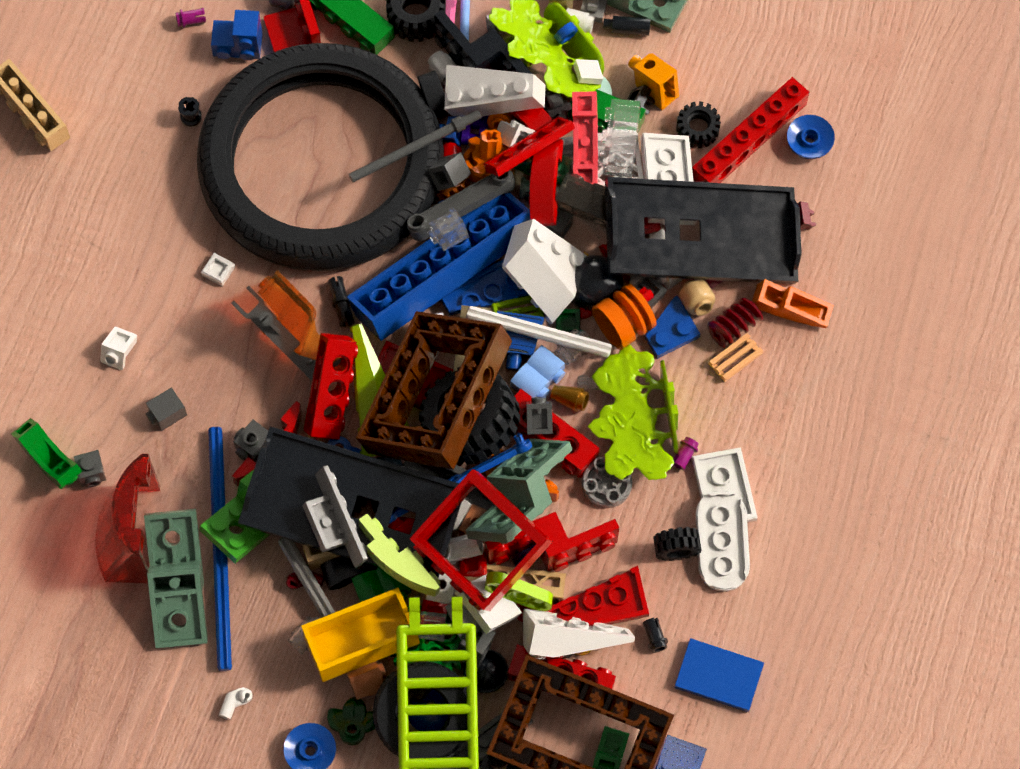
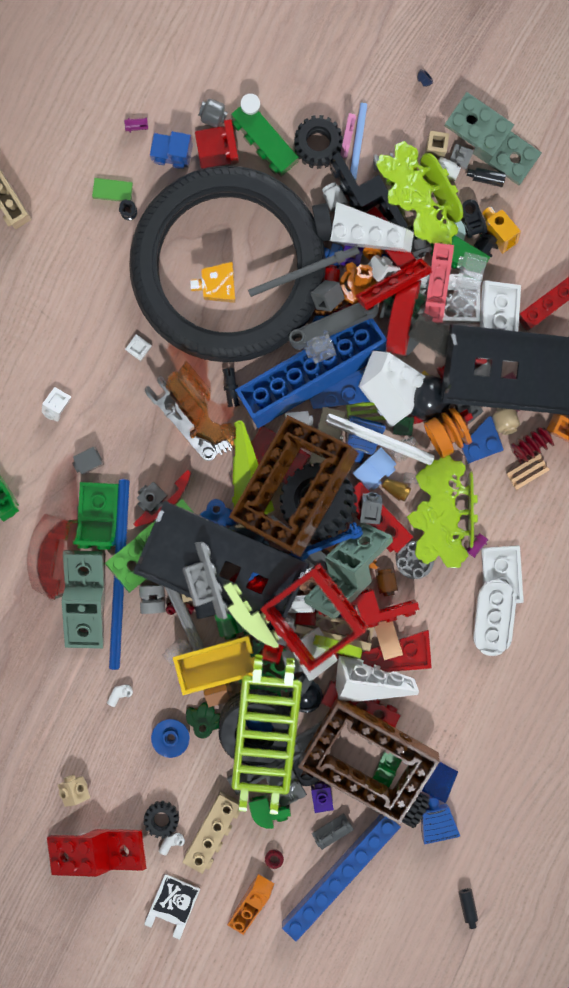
camera: 10 degrees right, 20 degrees up
(91, 467) = (27, 500): dark grey bracket -> none
(166, 93) = (112, 190): none -> bright green tile
(184, 473) = (97, 515): none -> green bracket
(266, 574) = (154, 605): none -> light grey wheel
(309, 170) = (216, 283): none -> light orange torso
(330, 348) = (214, 465): red brick -> none
(432, 618) = (270, 664): clear tile -> none
(565, 33) = (436, 184): blue tile -> none
(573, 512) = (386, 582): none -> reddish brown brick
(585, 582) = (388, 640): none -> light nougat tile
(588, 71) = (449, 220): white tile -> none
(619, 75) = (473, 220): none -> black piece
(655, 635) = (433, 683): black pin -> none
(677, 543) = (460, 619): black tyre -> none
(700, 112) = (533, 261): black tyre -> none
(719, 675) = (476, 718): blue tile -> none

